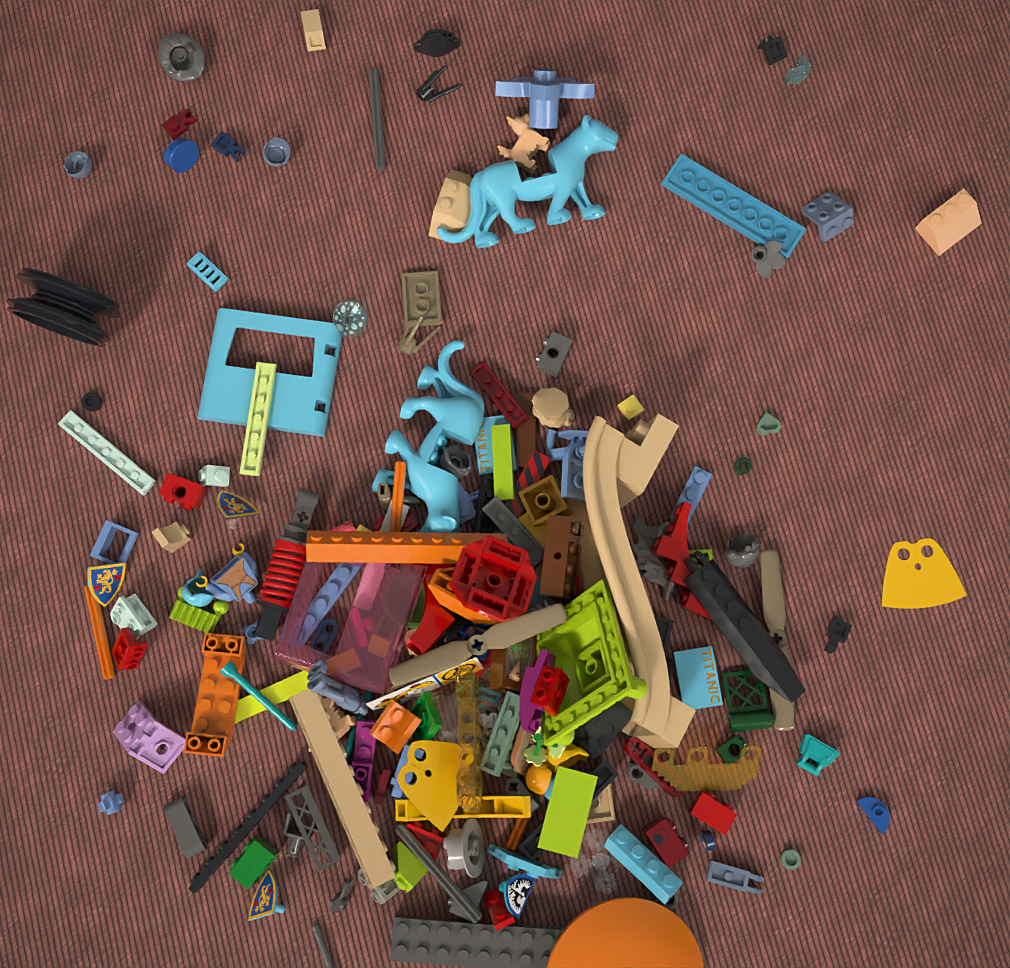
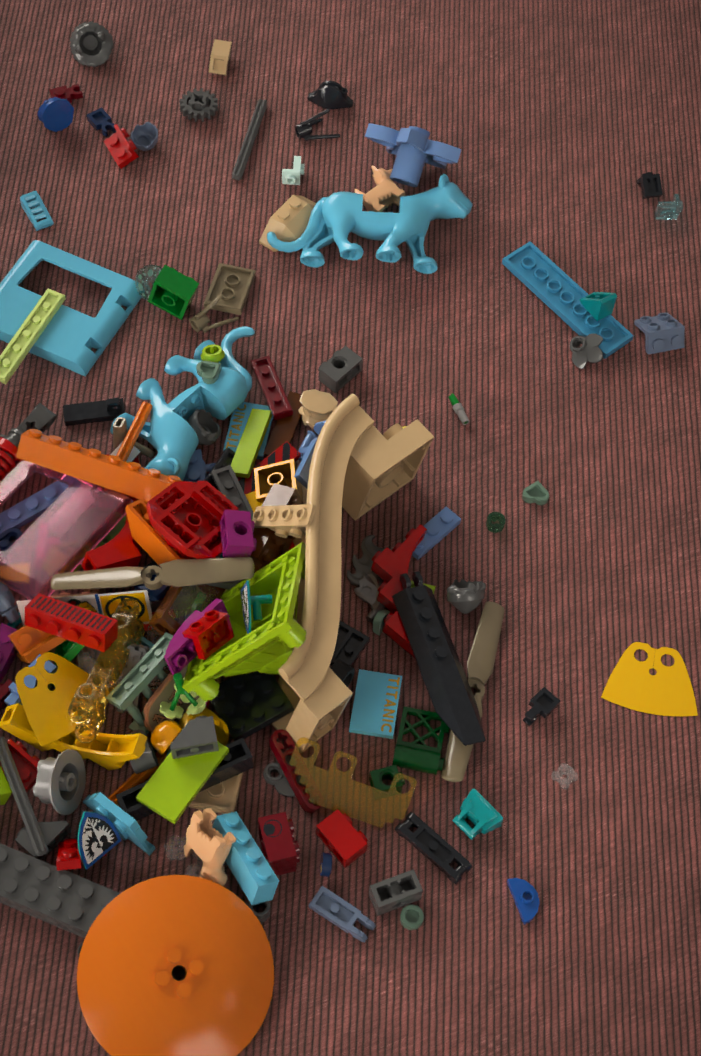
camera: 15 degrees right, 20 degrees down
(259, 172) = (120, 147): none -> red bracket
(314, 97) = (197, 104): none -> dark grey gear
(348, 473) = (93, 411): none -> black hinge
(375, 326) = (173, 292): none -> green brick
(423, 712) = (71, 622): none -> red brick
(436, 151) = (292, 176): none -> light aqua bracket
(437, 385) = (212, 353): none -> lime hat
(444, 411) = (208, 371): none -> sand green tile
(538, 594) = (237, 534): none -> magenta brick
(570, 780) = (195, 738): none -> dark grey slope
(576, 649) = (256, 602): none -> teal shield
(577, 559) = (285, 519): none -> tan bracket
(613, 867) = (208, 845): none -> light nougat animal
(672, 359) = (458, 409): none -> light grey piece
(677, 598) = (378, 623): none -> sand green tile
(766, 206) = (599, 304): none -> teal slope
(773, 848) = (395, 892): none -> dark grey brick
(788, 793) = (433, 847): none -> black plate
(880, 690) = (567, 770): none -> clear plate

